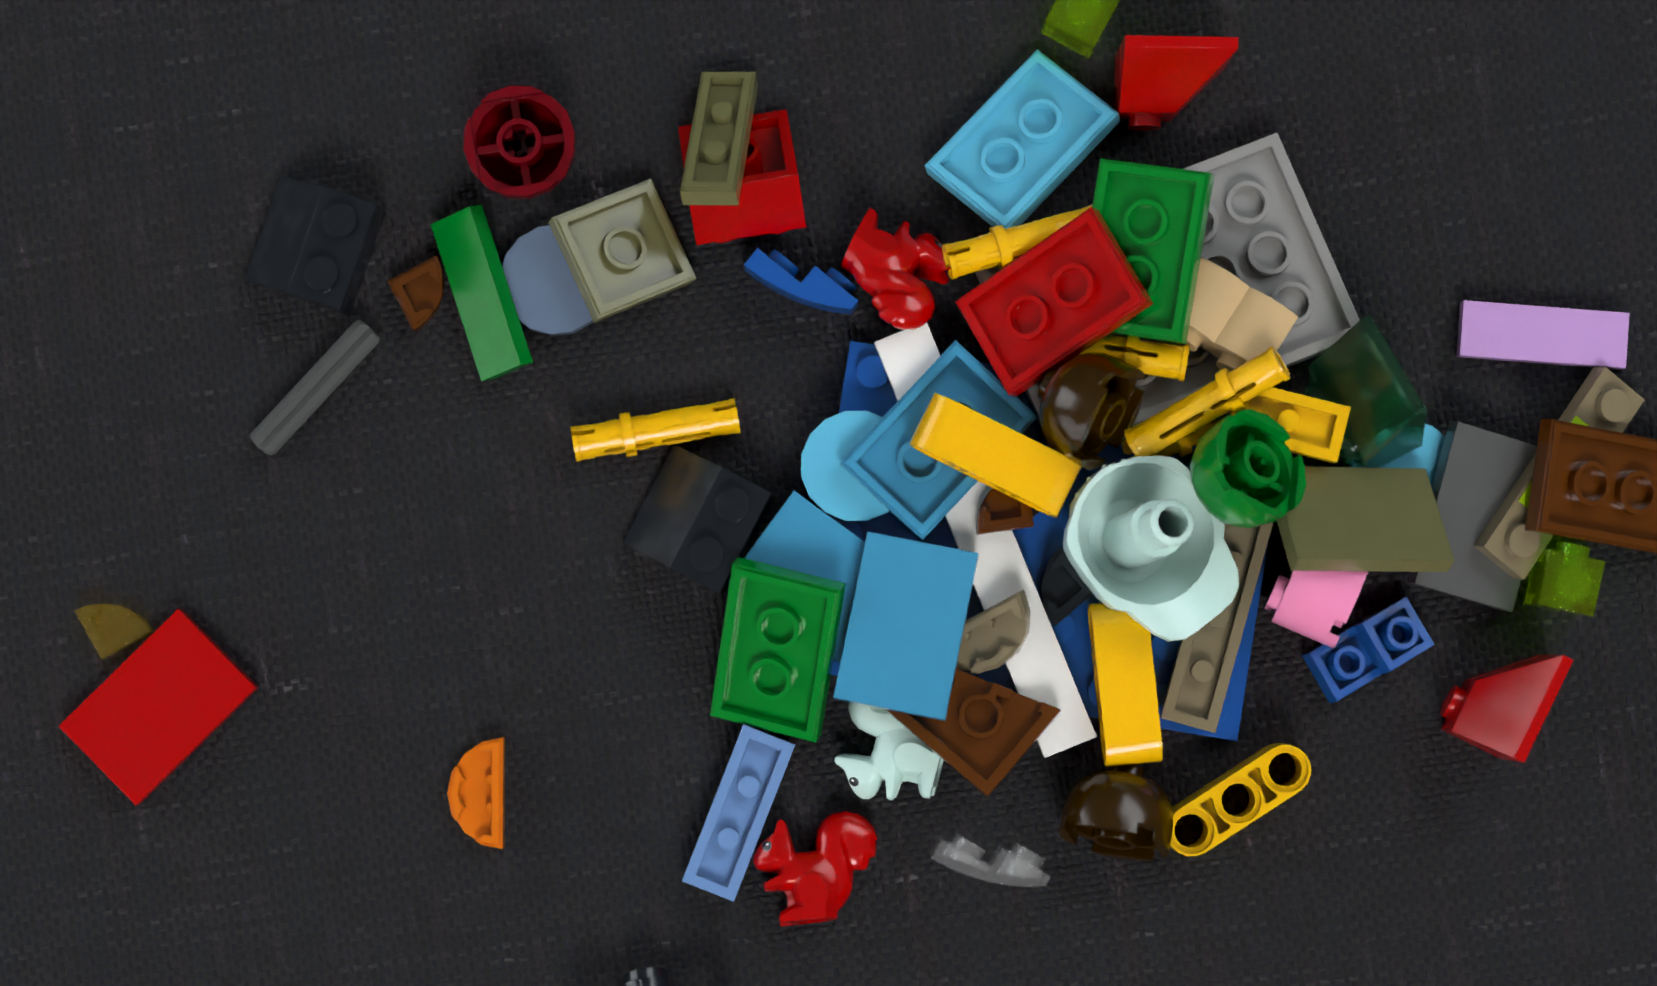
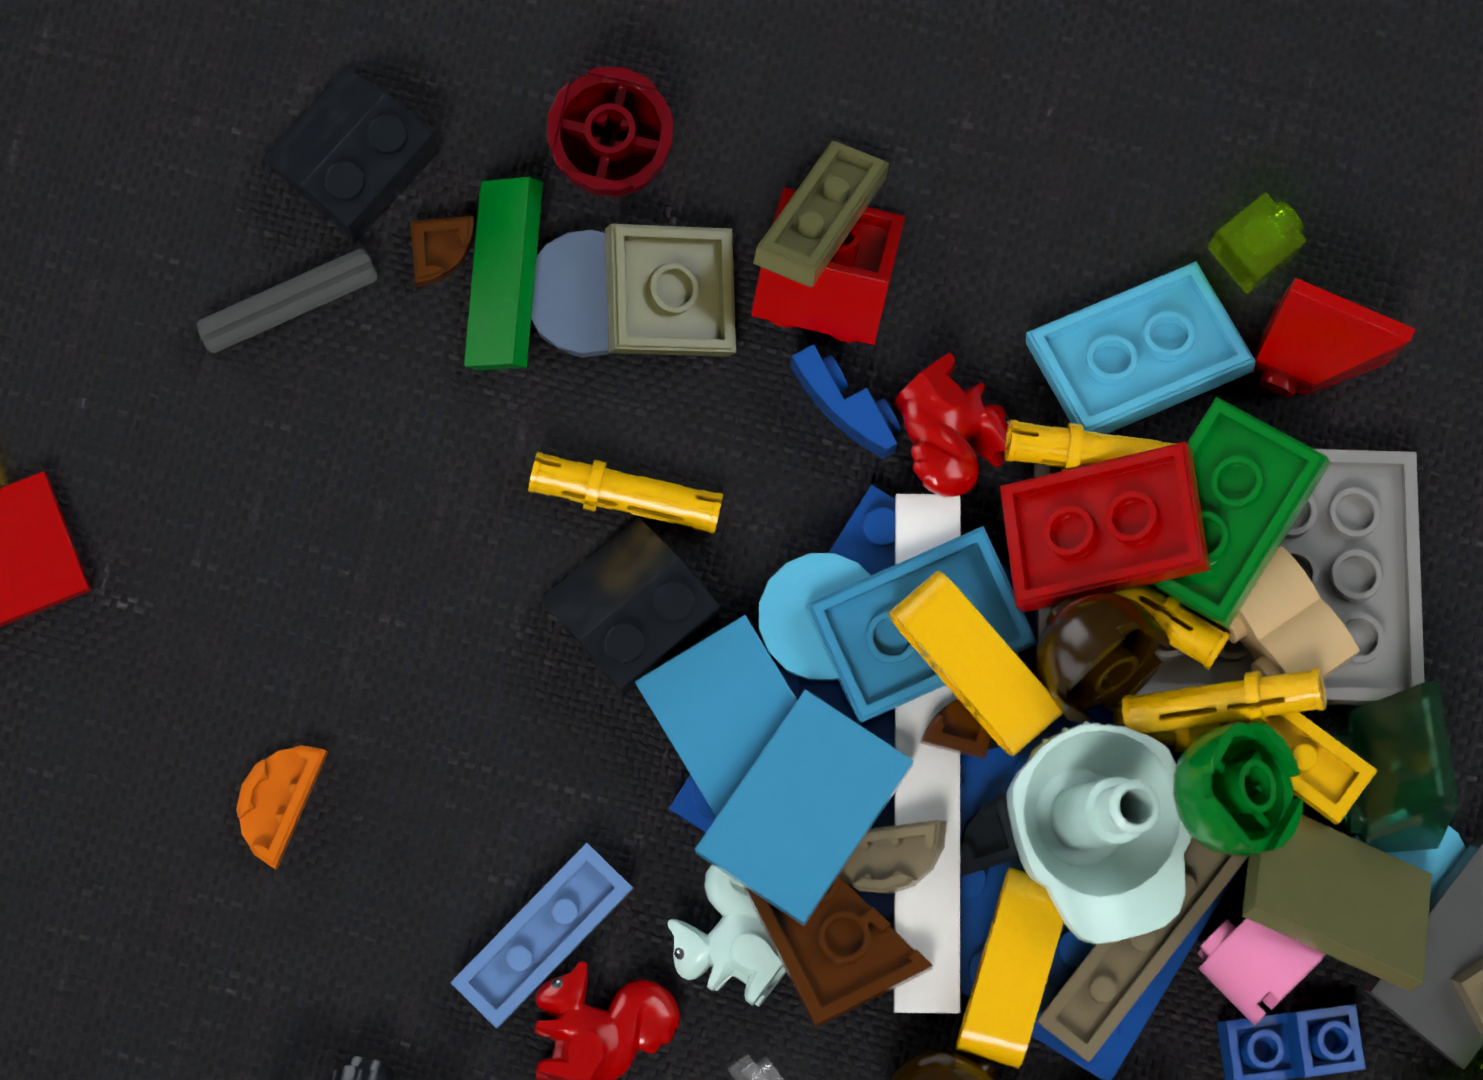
camera: 20 degrees right, 5 degrees down
(777, 649) = (656, 776): green tile -> none

